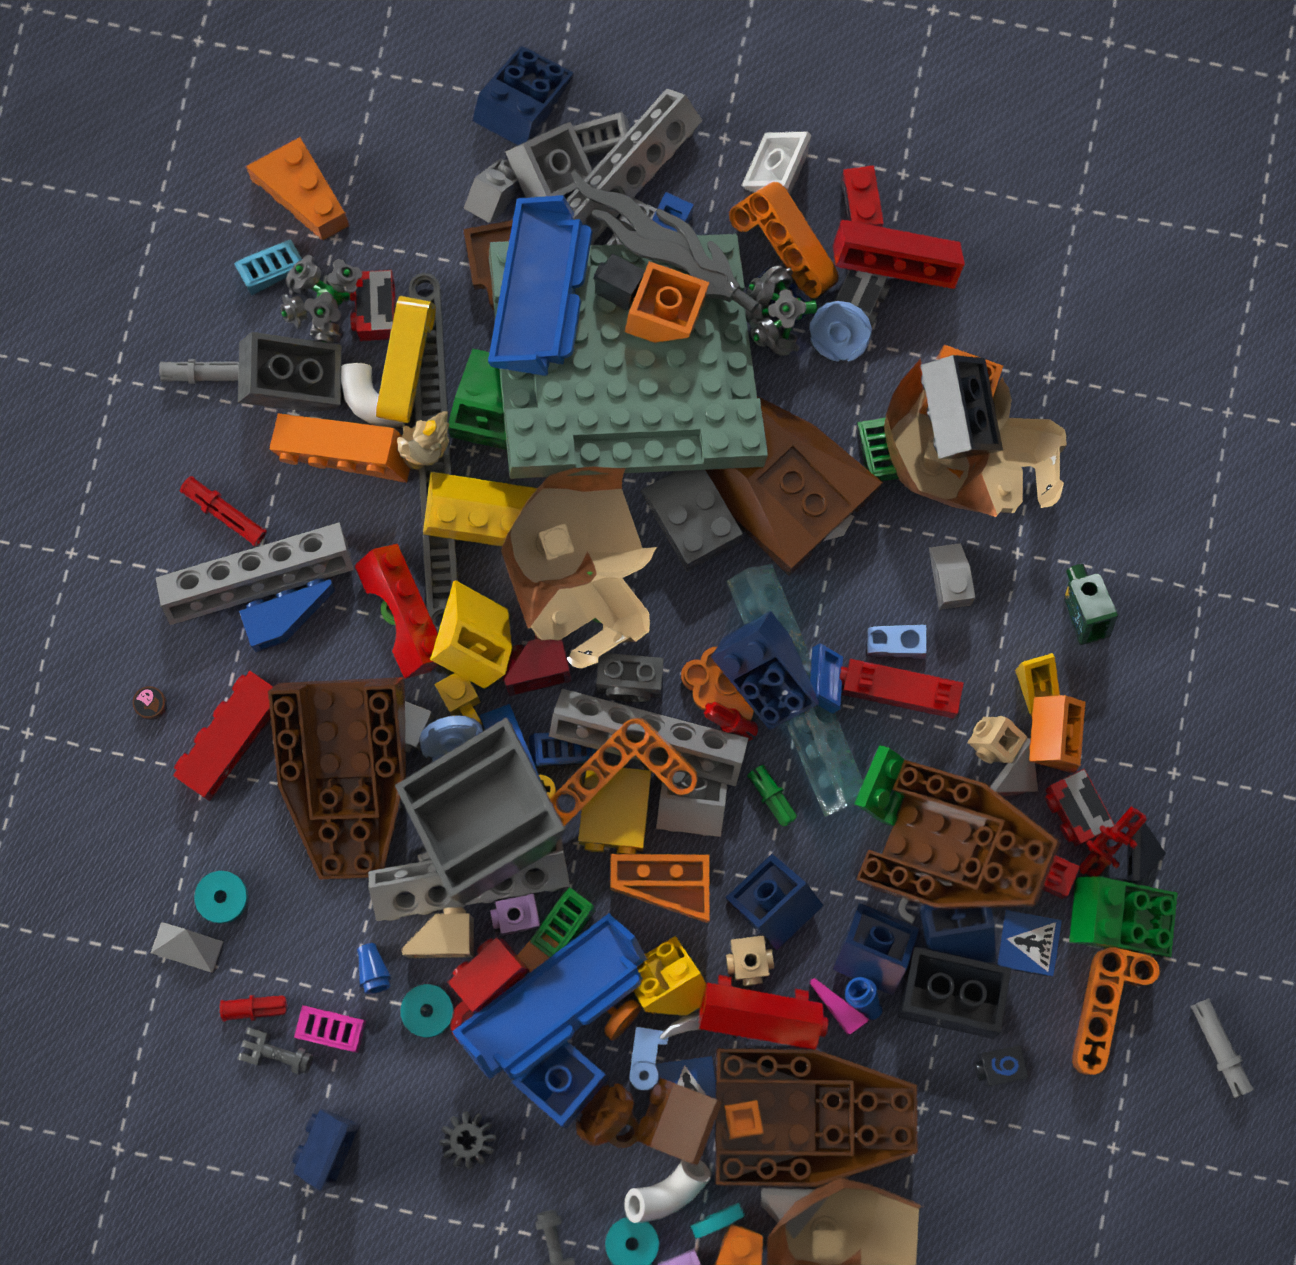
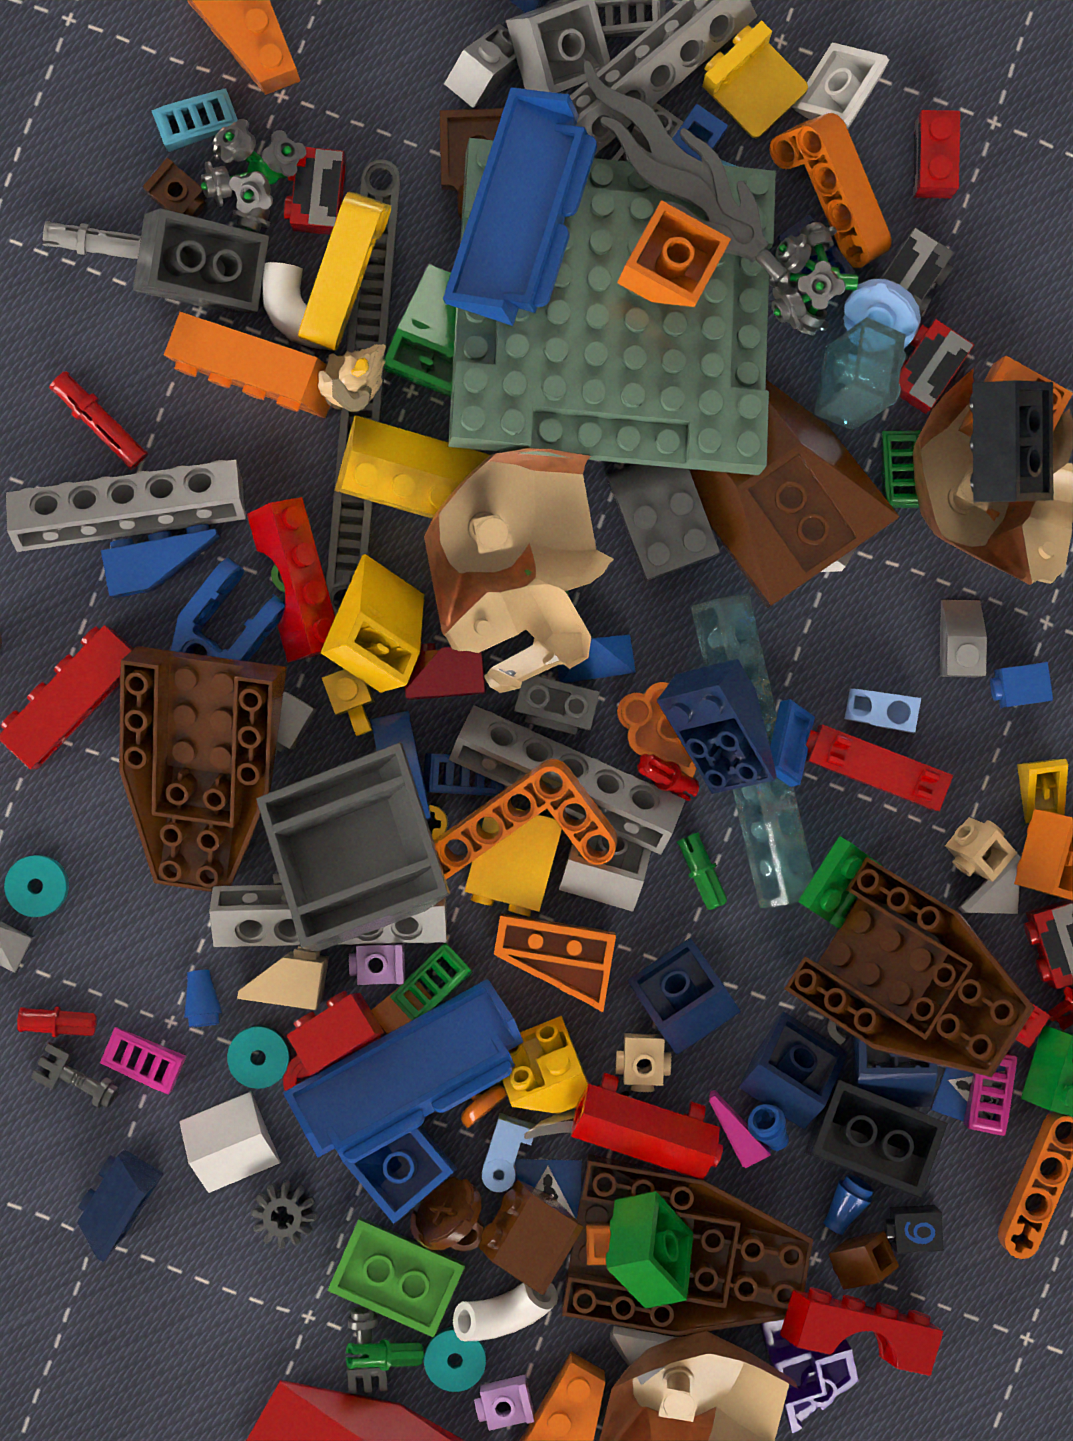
camera: 10 degrees right, 10 degrees up
(253, 313) = (162, 183): none -> reddish brown brick
(332, 640) = (204, 604): none -> blue piece
(412, 1088) = (228, 1142): none -> white slope
(447, 734) = (332, 745): light blue tile -> none
(571, 1179) = (396, 1277): none -> bright green plate
(571, 1247) = (384, 1355): none -> green axle
(618, 281) = (619, 216): black brick -> none
(665, 636) = (606, 658): none -> blue slope
(707, 169) = (753, 81): none -> yellow bracket
(717, 1220) = (556, 1353): teal piece -> none
(781, 1113) = (650, 1250): none -> green slope
(831, 378) = (860, 374): none -> clear light blue slope
(886, 364) = (931, 364): none -> brick
(898, 254) = (969, 230): red brick -> none
(936, 1184) = (816, 1374): none -> dark purple slope
(937, 1154) = (821, 1323): none -> red arch
(941, 1054) = (848, 1202): none -> blue cone
(962, 1098) = (863, 1260): none -> reddish brown brick
(1006, 603) = (1021, 685): none -> blue brick
(1031, 952) = (1004, 1094): none -> dark pink slope

